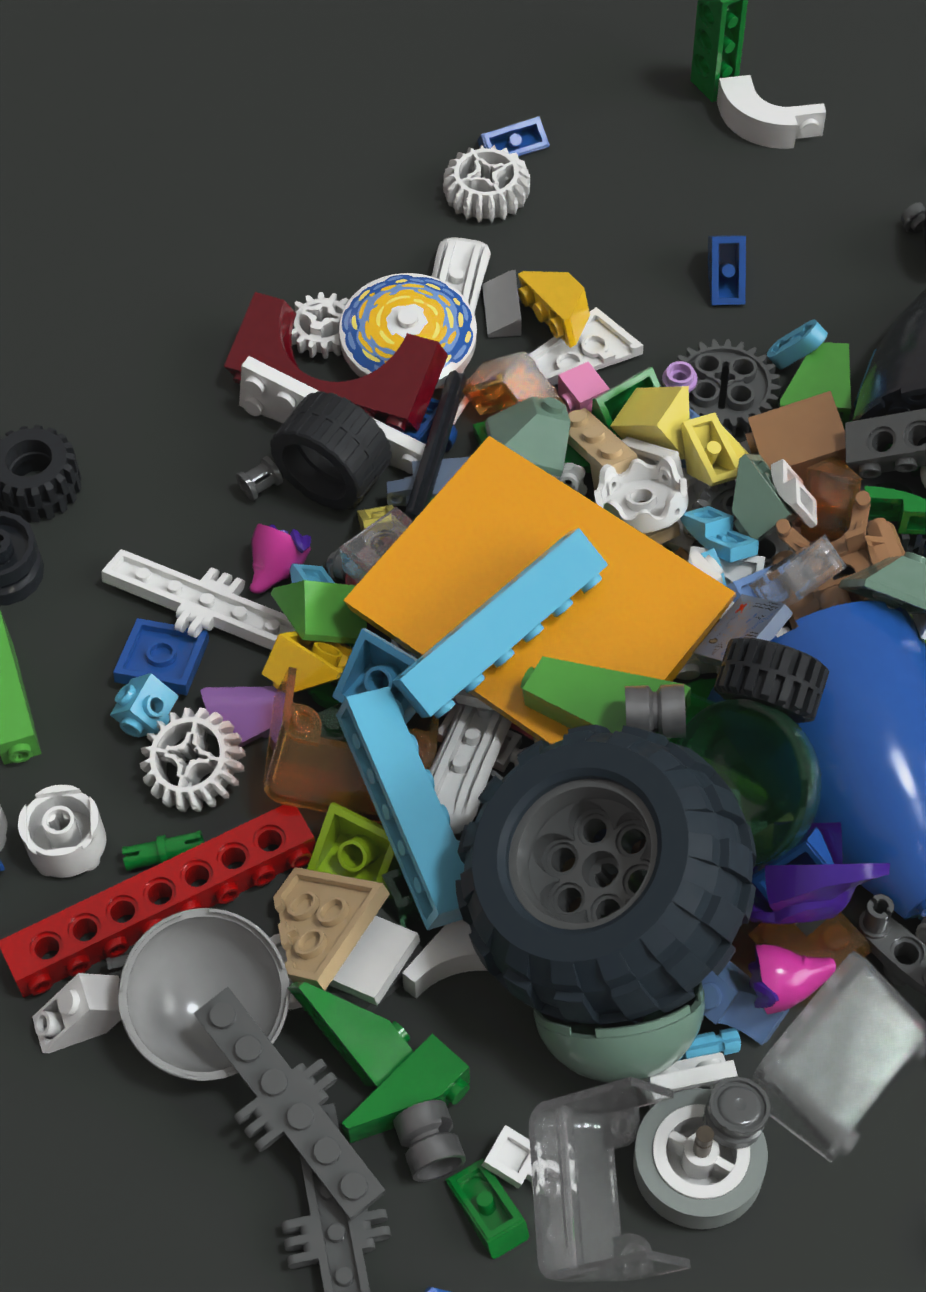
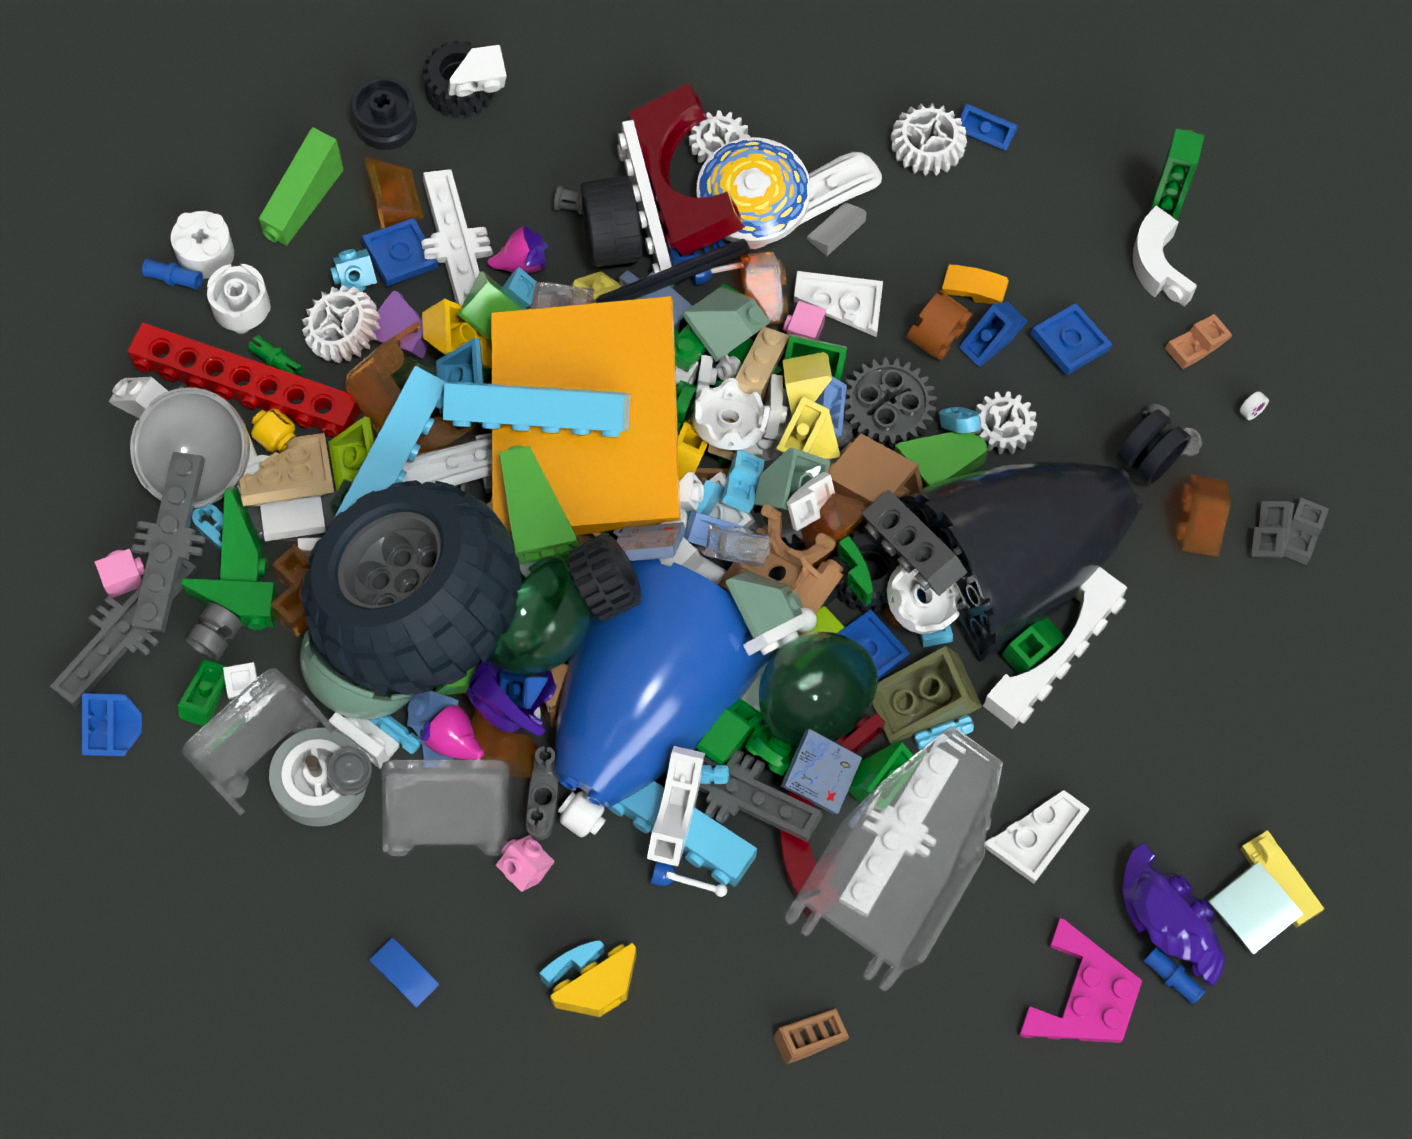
camera: 45 degrees right, 10 degrees up
(59, 436) = (479, 71): none -> white slope
(89, 619) = (393, 192): none -> clear orange slope
(251, 903) = (272, 430): none -> yellow head
(266, 1187) = (120, 572): none -> bright pink brick
(303, 1047) = (205, 528): none -> medium azure beam
(466, 1004) = (288, 606): none -> clear orange brick
(556, 301) = (857, 258): yellow slope -> none
(658, 710) = (533, 532): flat silver wheel -> none
(666, 246) = (979, 284): none -> light orange slope
(680, 374) = (864, 365): lavender plate -> none
(686, 294) = (939, 325): none -> dark orange brick
(784, 223) = (1071, 339): none -> blue plate
(830, 312) = (1012, 433): none -> white gear
(868, 146) = (1198, 342): none -> nougat slope

